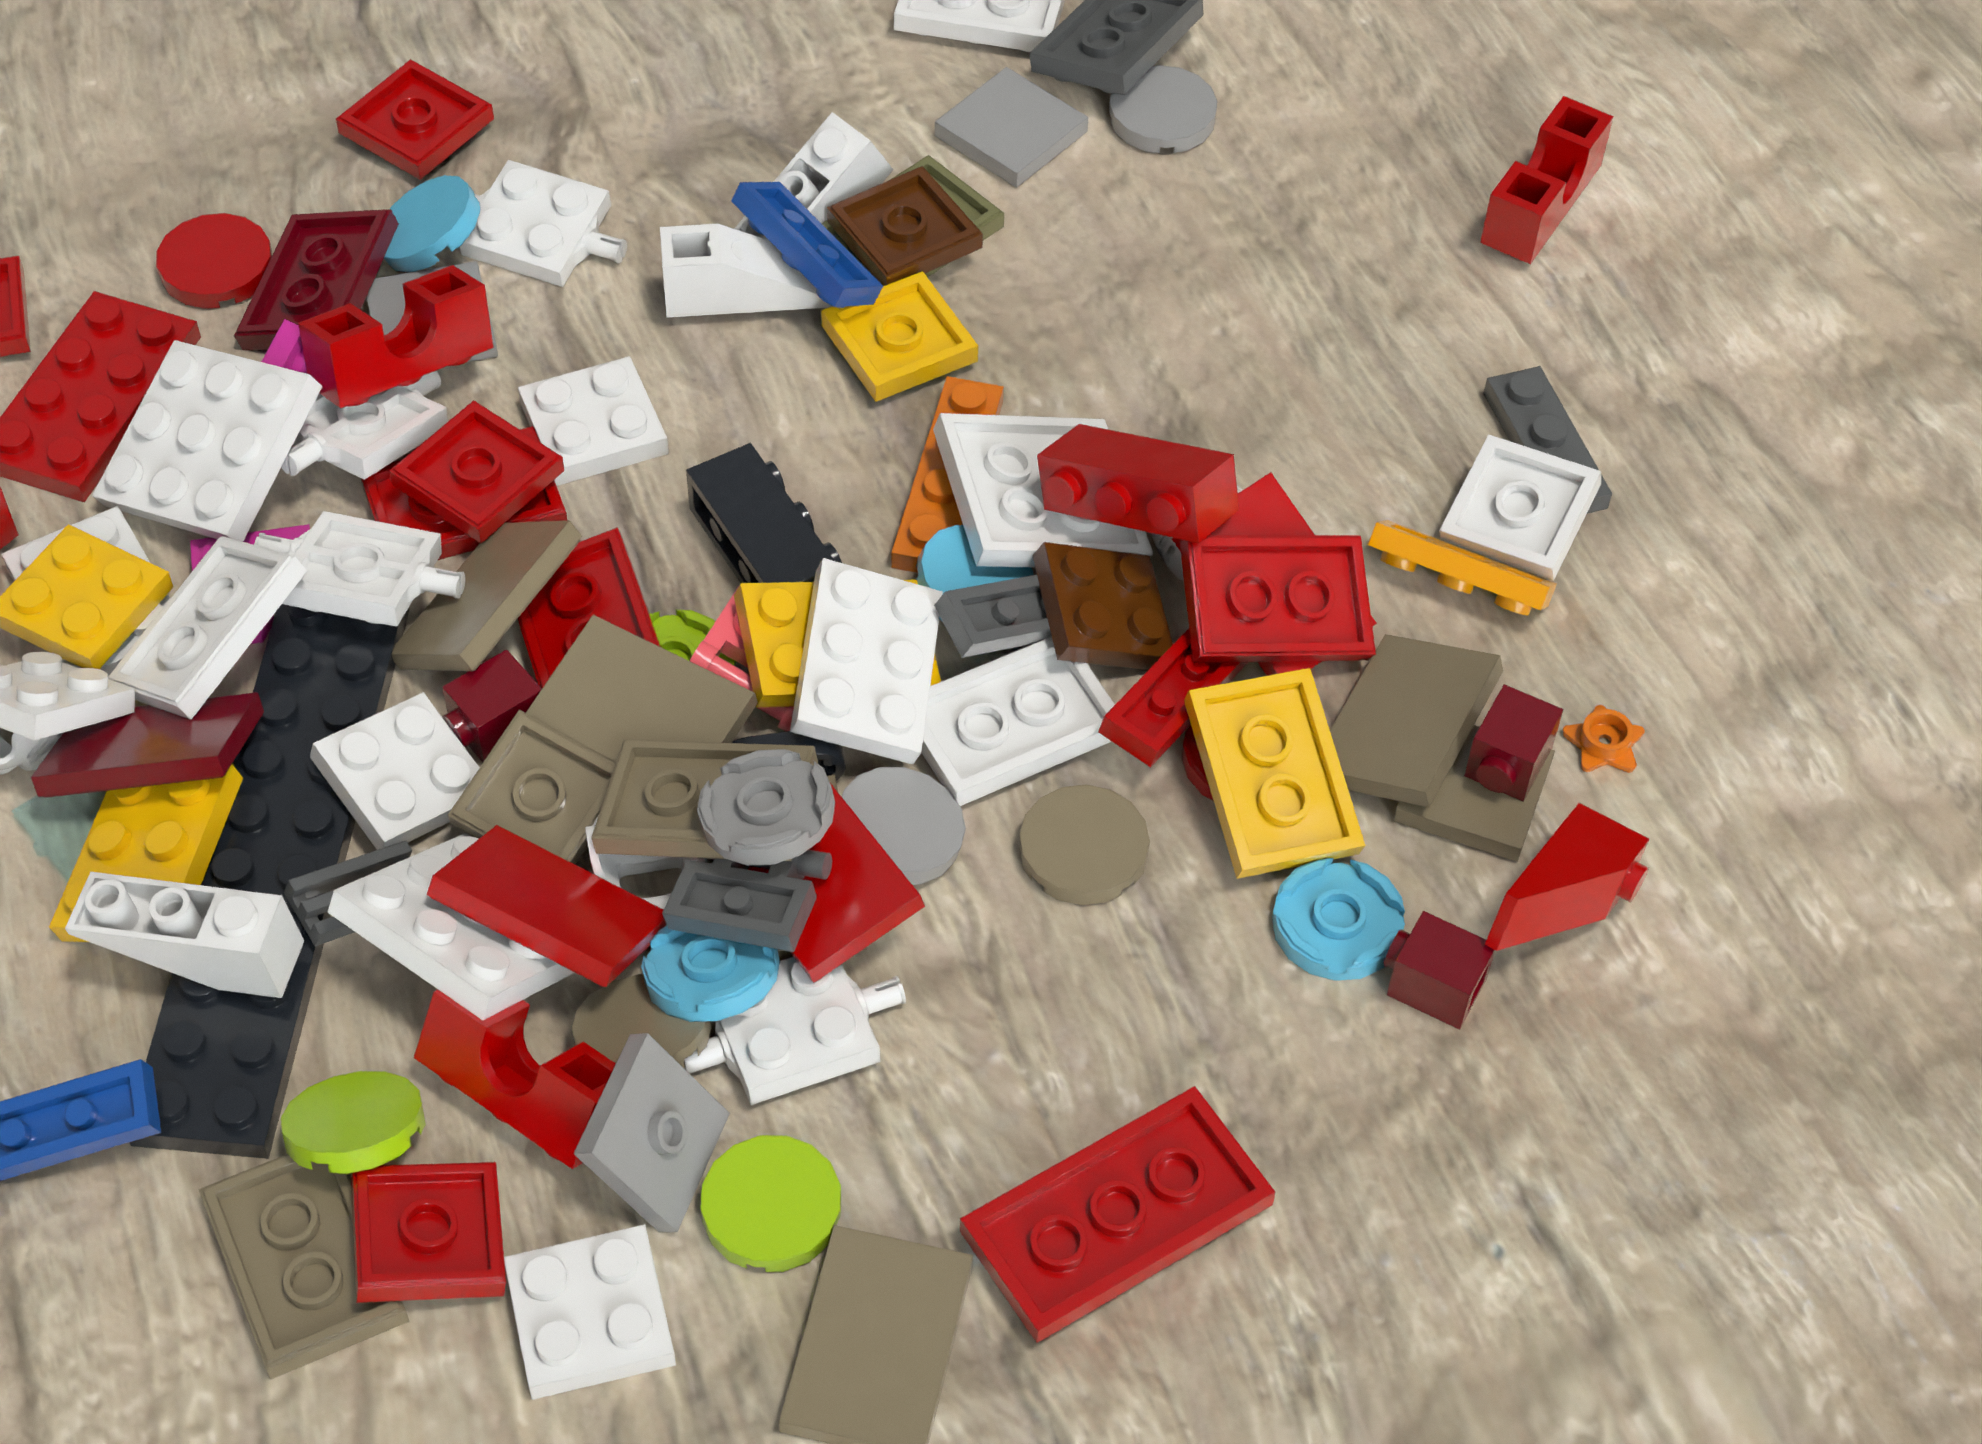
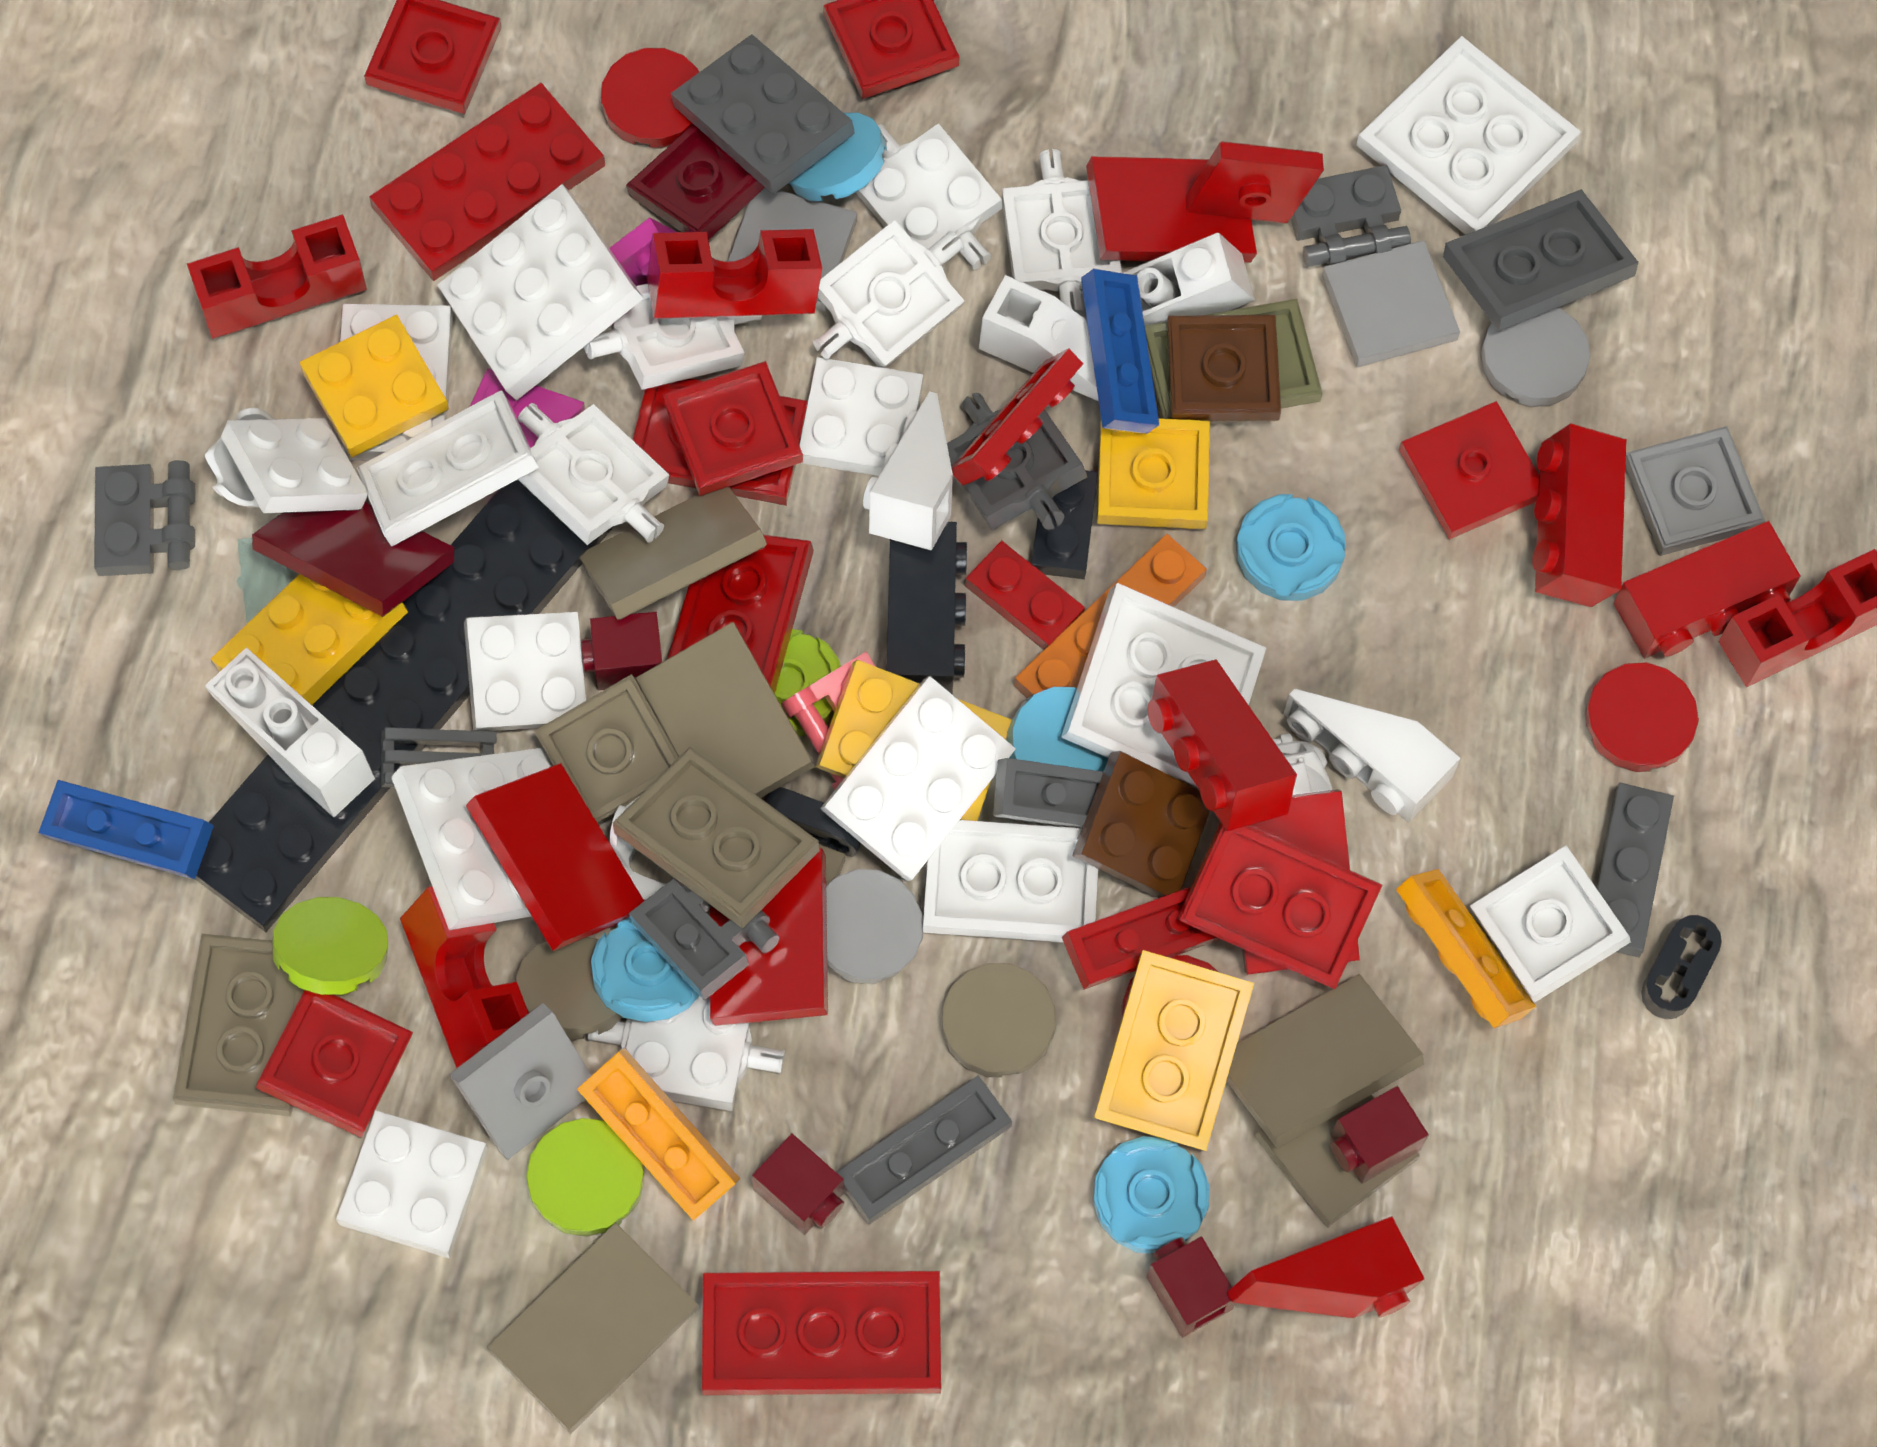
camera: 30 degrees right, 15 degrees up
(336, 213) = (762, 113): none -> dark grey plate
(554, 306) = (888, 295): none -> white plate
(673, 188) = (1053, 232): none -> white plate
(690, 423) = (915, 487): none -> white slope
(752, 331) = (1017, 419): none -> red plate
(755, 132) = (1144, 210): none -> red tile
(766, 378) = (1030, 480): none -> dark grey plate
(766, 807) = (744, 878): light grey tile -> none
(825, 1111) = (658, 1134): none -> light orange plate
(835, 65) = (1254, 182): none -> red plate
(844, 415) = (1066, 547): none -> black plate
(851, 487) = (1023, 595): none -> red plate
(915, 76) = (1349, 203): none -> dark grey plate
(1000, 1086) = (800, 1185): none -> dark red brick
(1063, 341) = (1290, 547): none -> medium azure tile
(1096, 992) = (924, 1149): none -> dark grey plate
(1176, 213) = (1472, 469): none -> red plate
(1283, 438) = (1384, 751): none -> white slope
(1299, 195) = (1580, 515): none -> red brick
(1370, 147) = (1693, 490): none -> light grey tile
(1441, 206) = (1705, 590): none -> red brick
(1463, 325) = (1641, 717): none -> red tile
(1609, 725) = (1486, 1154): orange plate -> none
(1663, 492) = (1692, 973): none -> black beam

